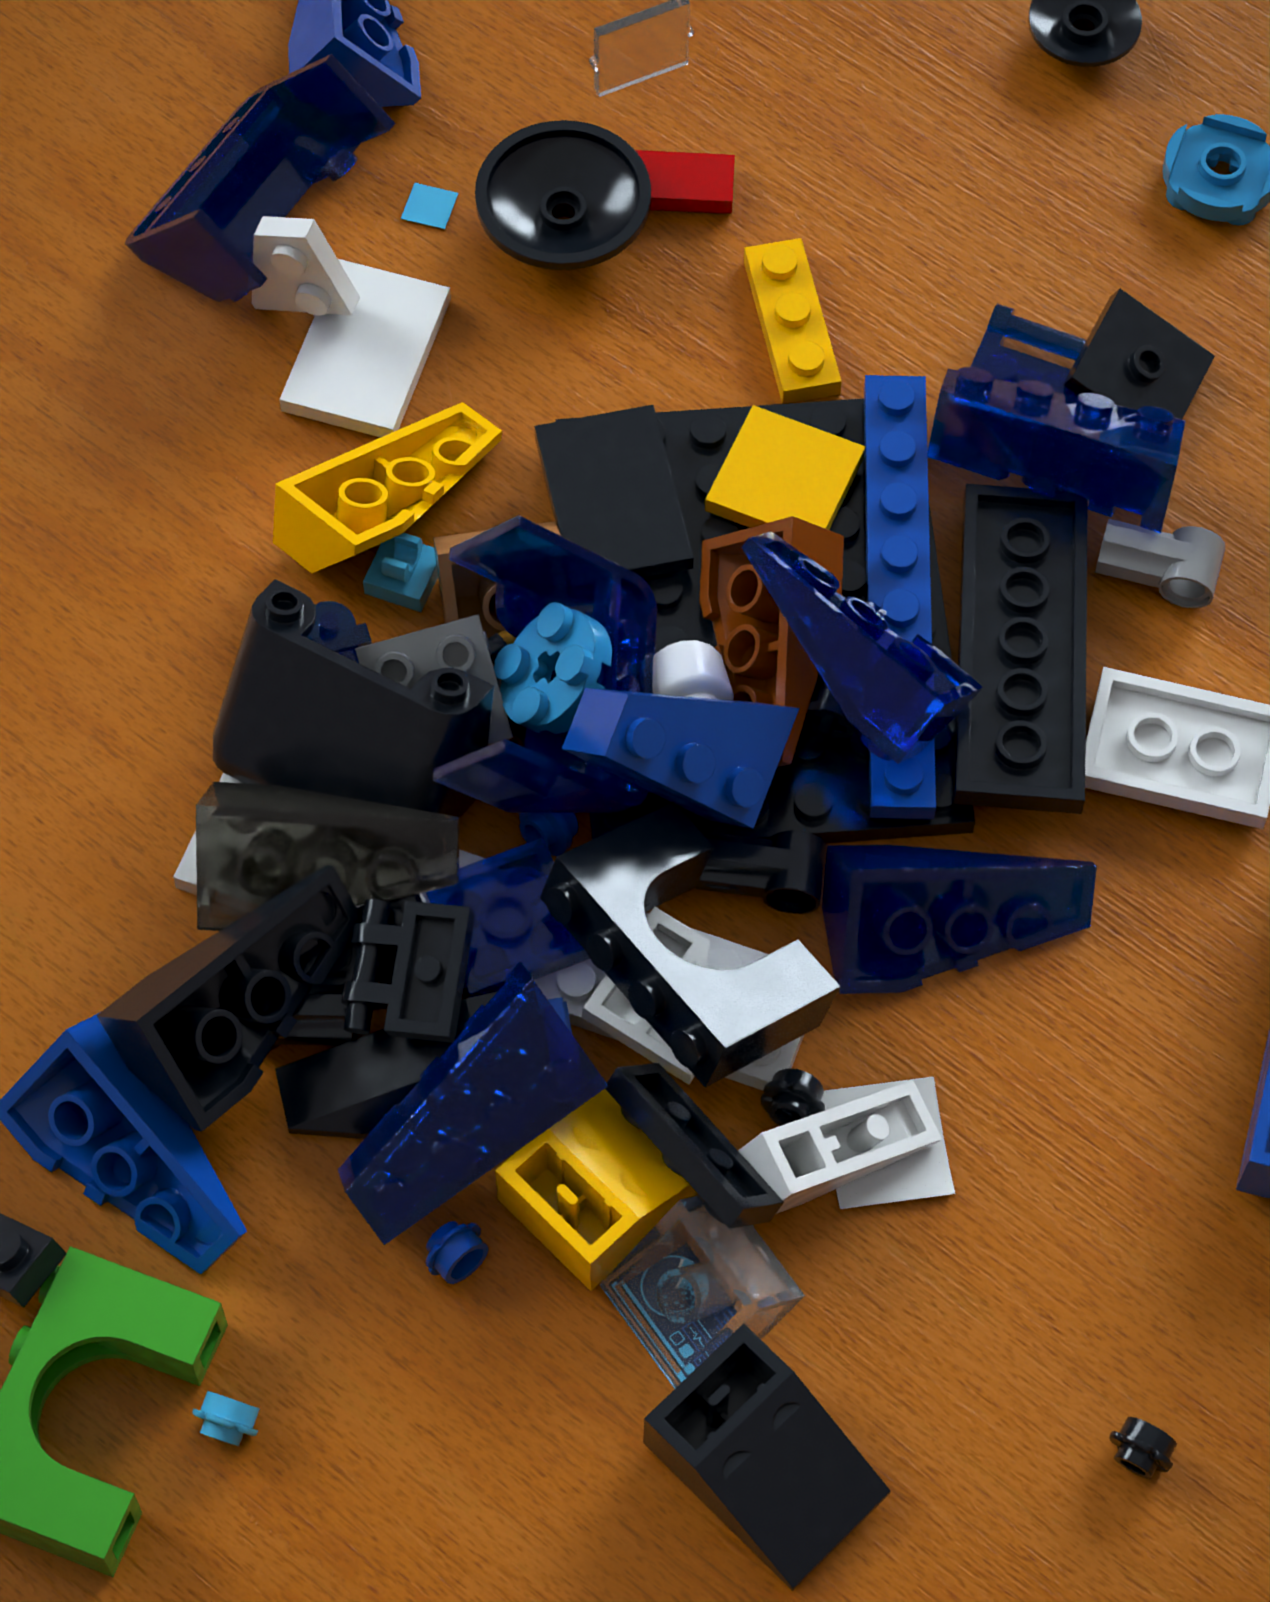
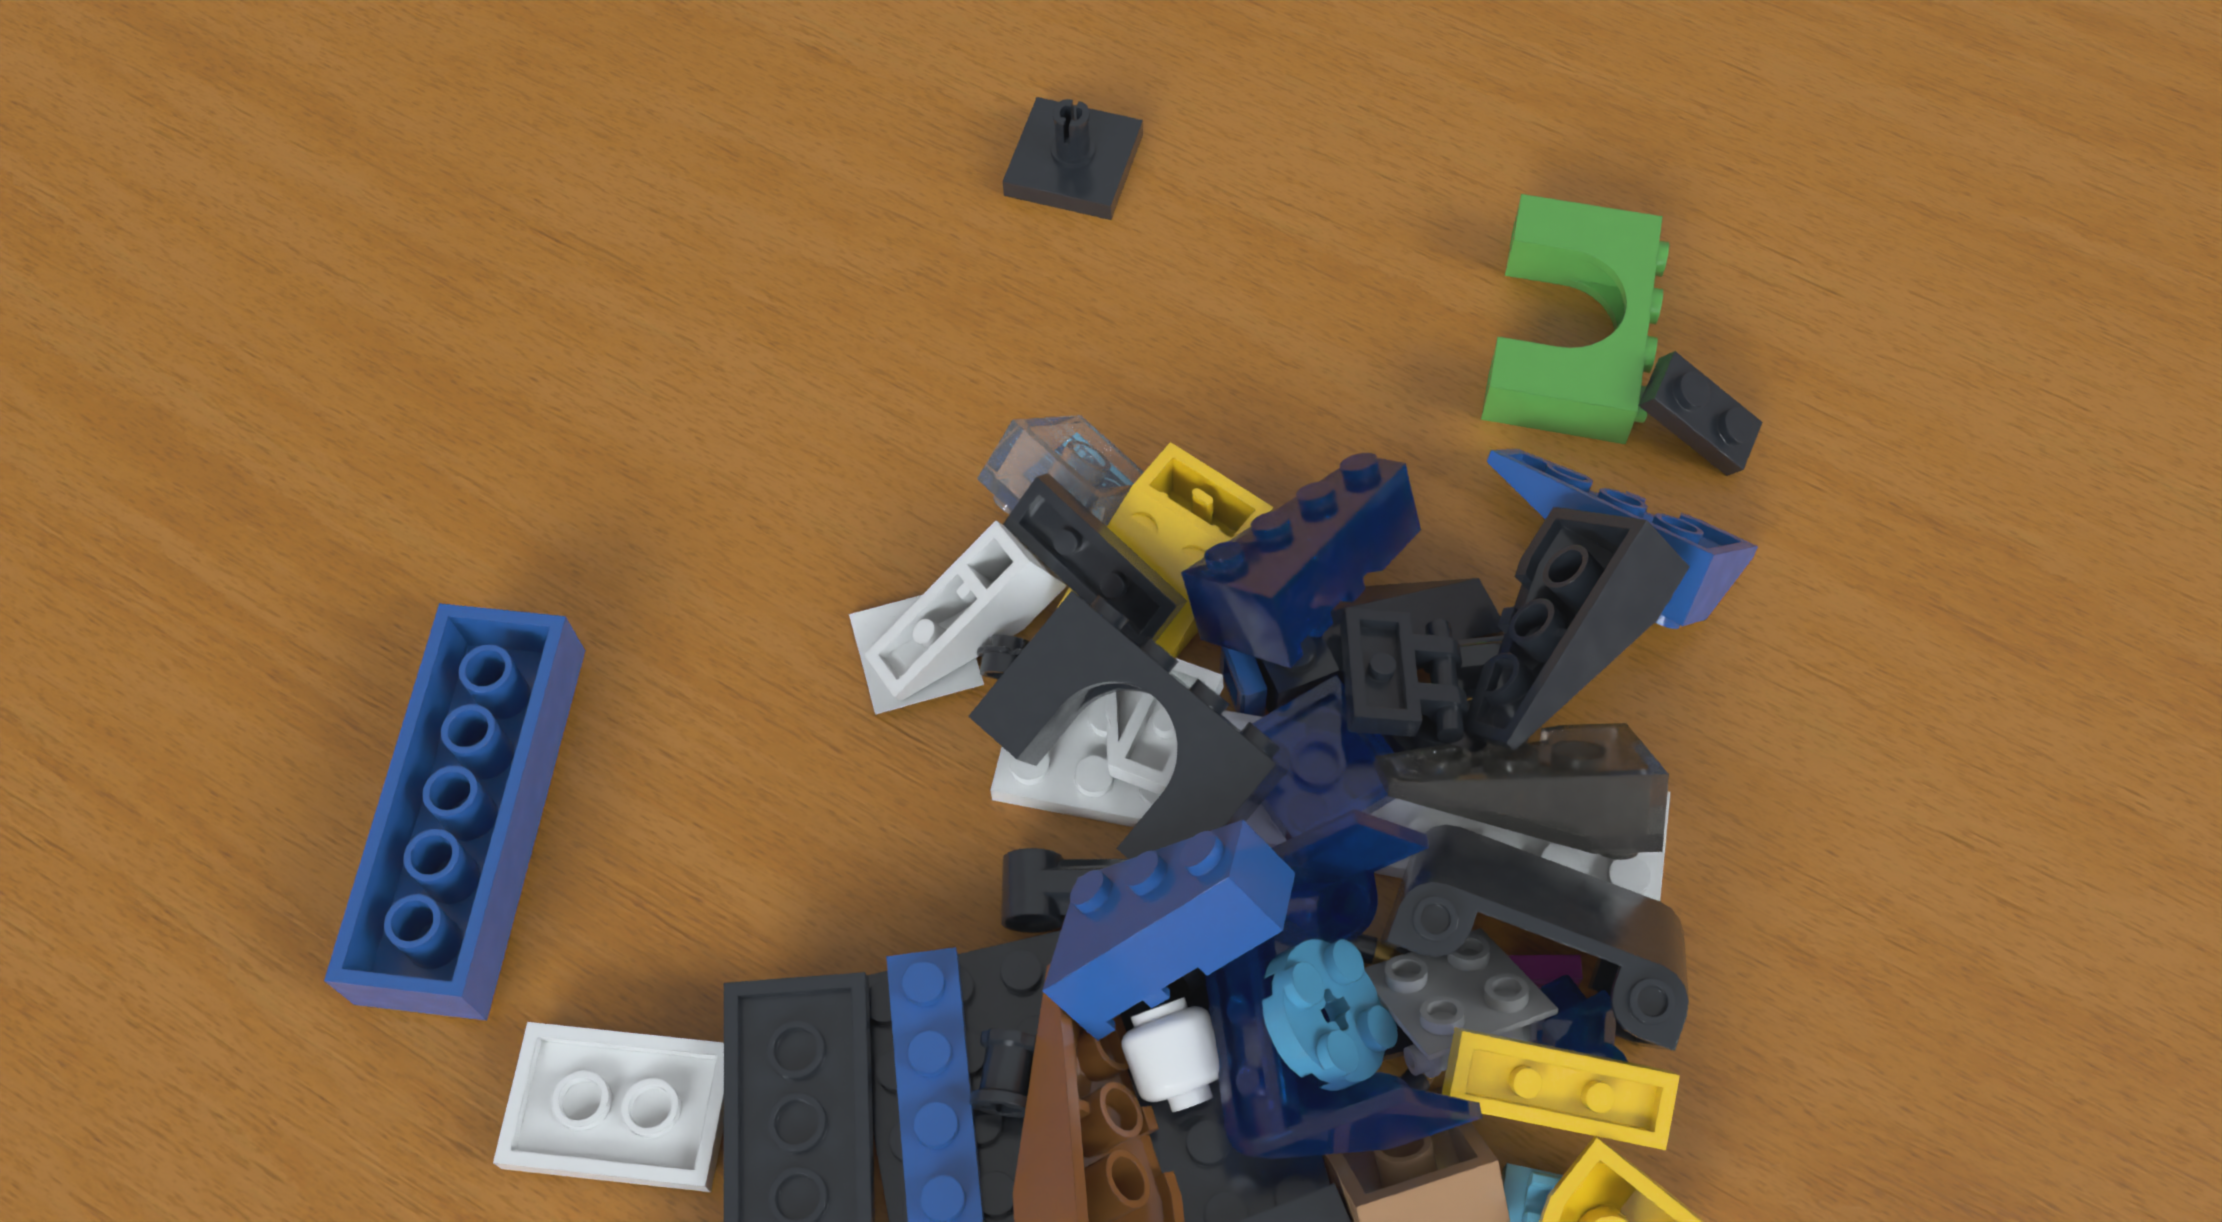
camera: 175 degrees right, 0 degrees up
(226, 1418) = (1457, 334): medium azure plate -> none
(378, 585) = (1562, 1088): none -> yellow plate
(455, 1251) = (1292, 479): blue plate -> none
(764, 1456) = (1004, 355): black slope -> none
(883, 683) = (964, 1069): clear blue wedge -> none
(928, 910) = (910, 871): clear blue wedge -> none
(1143, 1447) = (675, 419): black plate -> none

